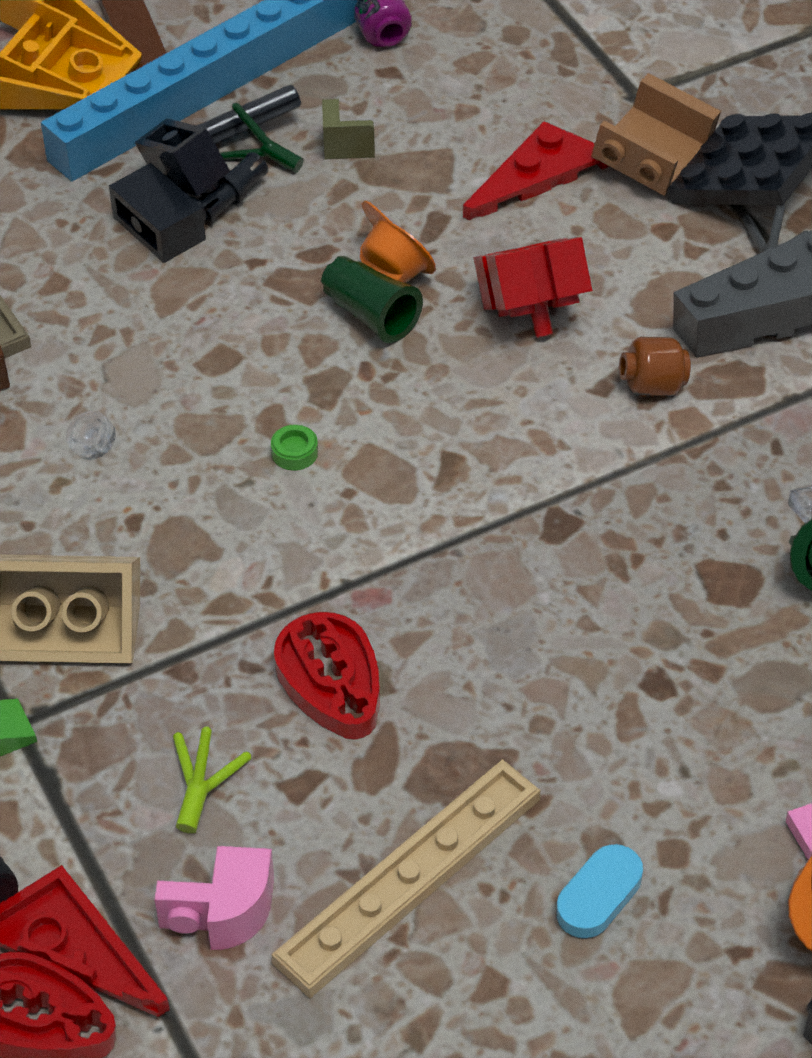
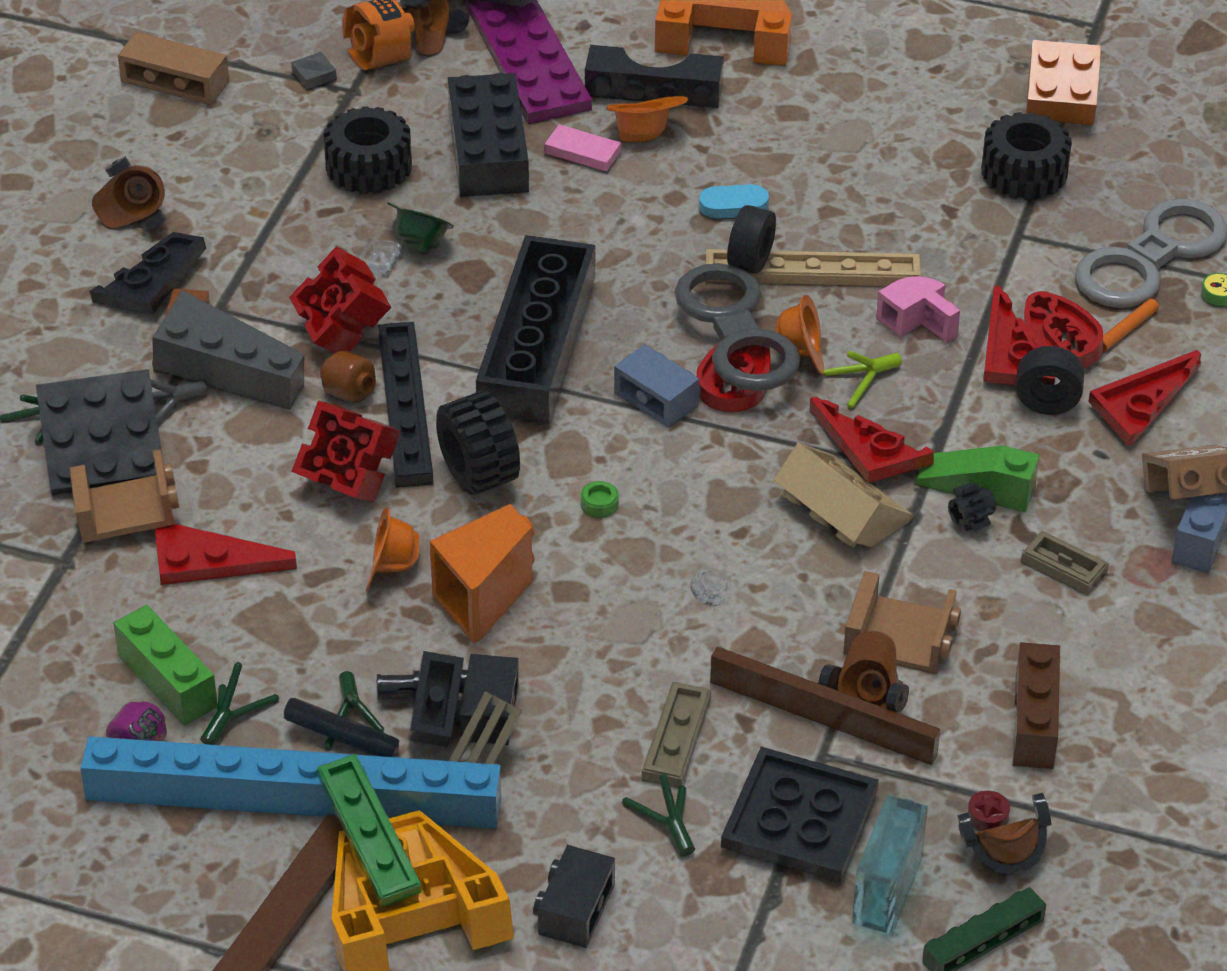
camera: 135 degrees left, 5 degrees down
(89, 682) = (868, 445): none -> red wing
(101, 34) = (369, 830): none -> green tile
(115, 171) = (501, 705): none -> dark tan tile
(282, 270) = (482, 569): none -> orange slope
(292, 744) = (803, 329): none -> orange piece
(345, 138) = (292, 668): olive panel -> none
(346, 77) = (224, 714): none -> dark green plant
(375, 299) = (439, 513): dark green plant -> none
(375, 693) = (737, 327): none -> dark grey bar
(378, 578) = (656, 385): none -> sand blue brick
(430, 62) = (165, 664): none -> bright green brick
(432, 357) = (478, 442): none -> black tyre
(473, 784) = (751, 238): none -> black tyre
(561, 534) = (537, 326): none -> black brick
(588, 402) = (405, 404): none -> black tile
(749, 399) = (340, 301): none -> red brick

